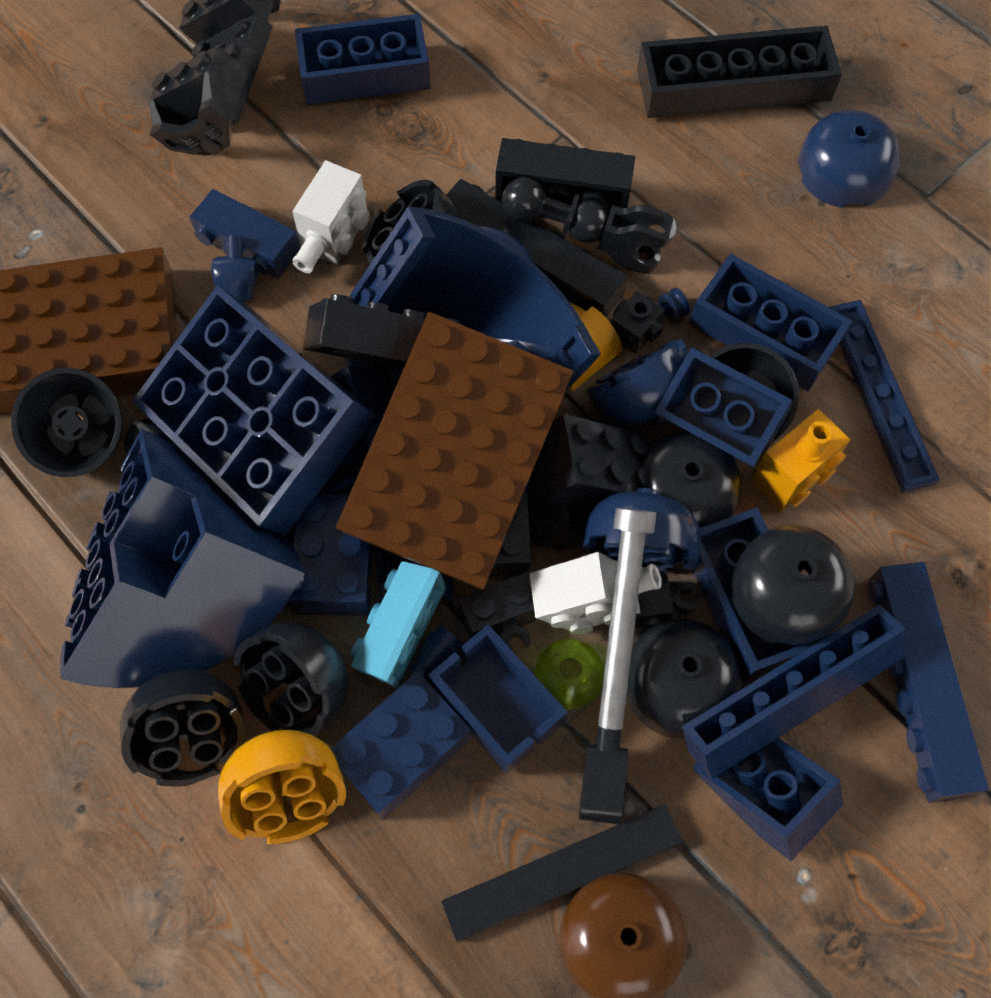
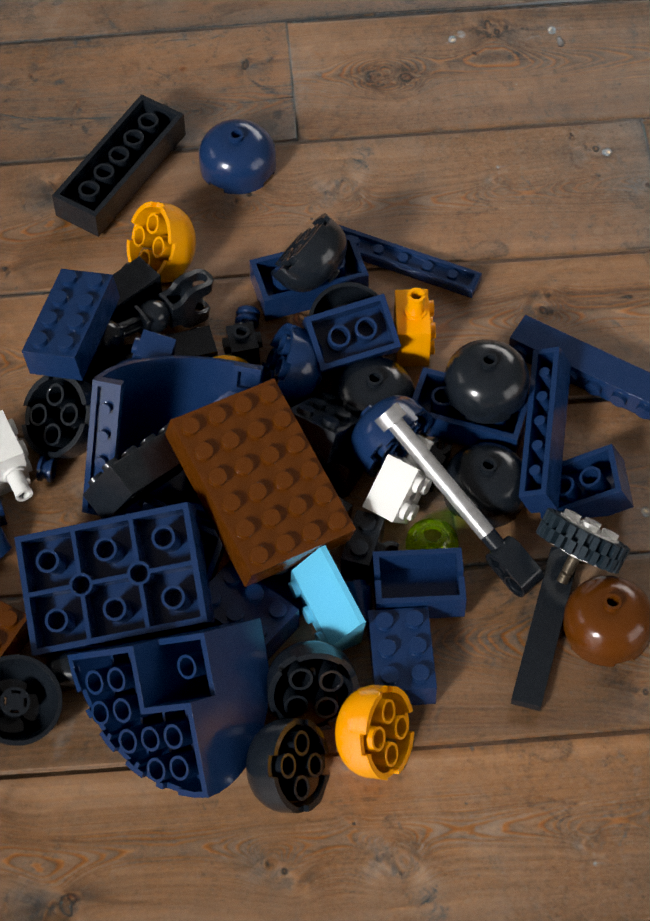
camera: 50 degrees left, 10 degrees down
(353, 264) = (46, 469): none -> dark blue bush
(493, 153) = (71, 324): none -> dark blue brick
(536, 245) = (153, 345): none -> dark blue brick
(683, 842) = (582, 542): none -> black wheel
(685, 169) = (169, 235): none -> light orange cylinder
(780, 304) = (312, 256): none -> black cylinder

